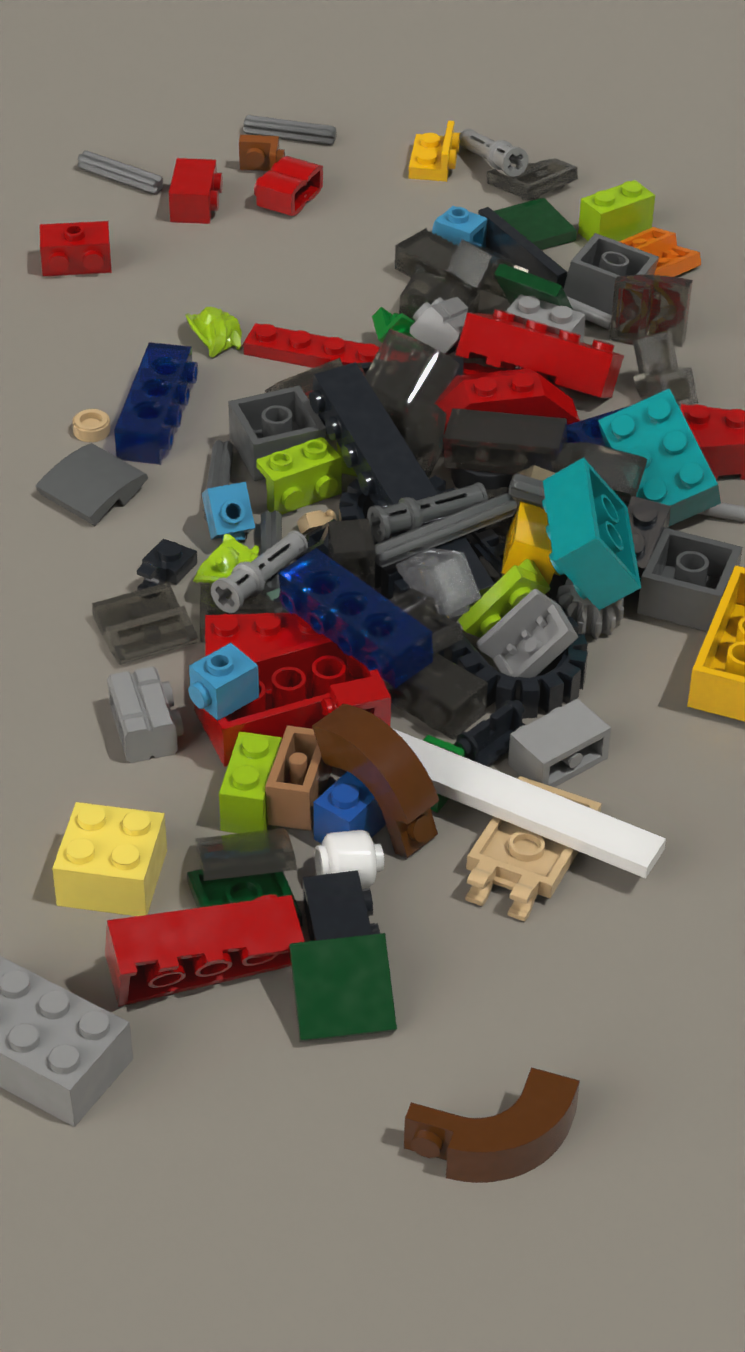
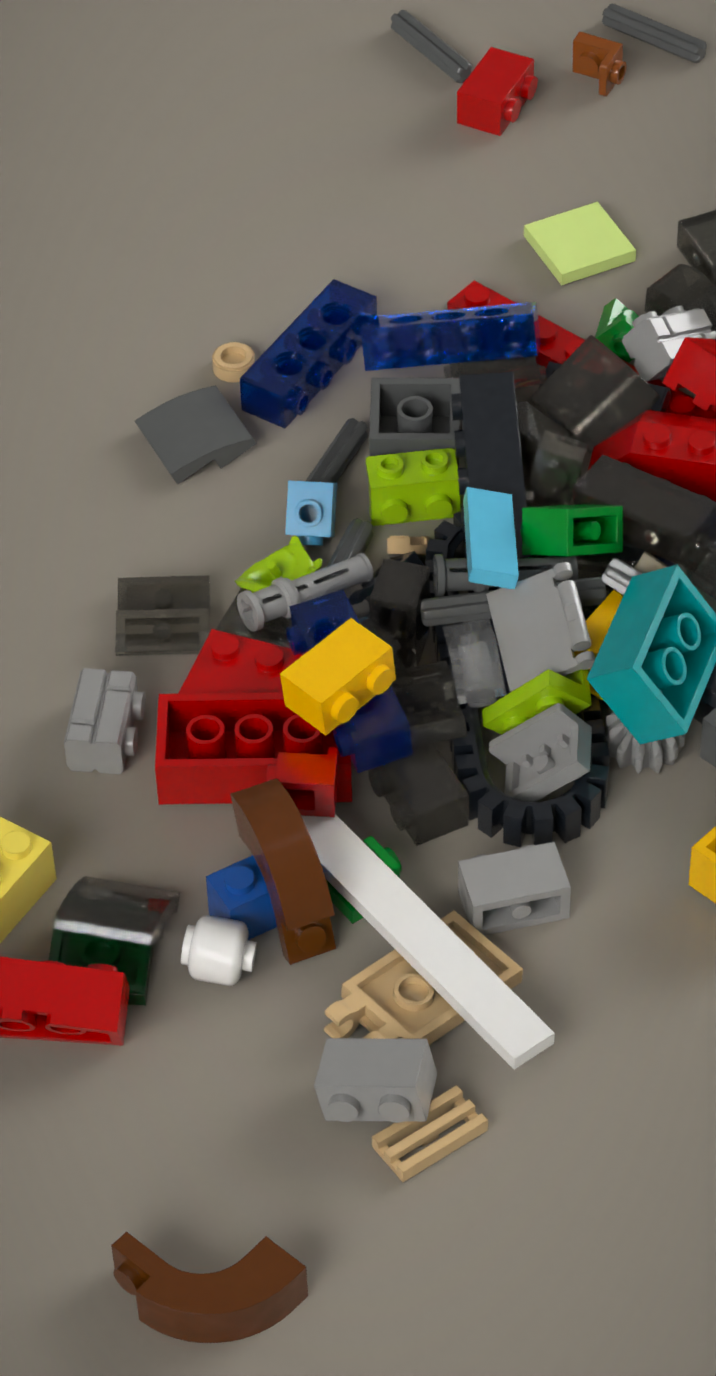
camera: 25 degrees right, 5 degrees up
(75, 248) = (326, 136): red brick -> none
(166, 562) = (221, 551): black plate -> none
(216, 329) = (426, 277): lime hat -> none
(223, 681) = (173, 715): dark azure brick -> none
(243, 787) = (167, 833): lime brick -> none
(268, 361) = (450, 336): none -> clear blue brick
(289, 185) = (608, 109): red brick -> none
(296, 780) = (204, 844): medium nougat brick -> none
(320, 281) = (579, 243): none -> yellowish green tile
(337, 906) = (173, 1016): black brick -> none
(342, 987) = (133, 1086): dark green tile -> none
(360, 608) = (338, 676): none -> yellow brick
(411, 483) = (490, 538): none -> medium azure tile
(462, 465) = (572, 530): none -> green brick
(488, 536) = (540, 626): none -> light grey piece
(491, 737) = (437, 860): black hinge -> none
(542, 919) = (375, 1079): none -> light grey brick
(615, 926) = (408, 1135): none -> tan tile

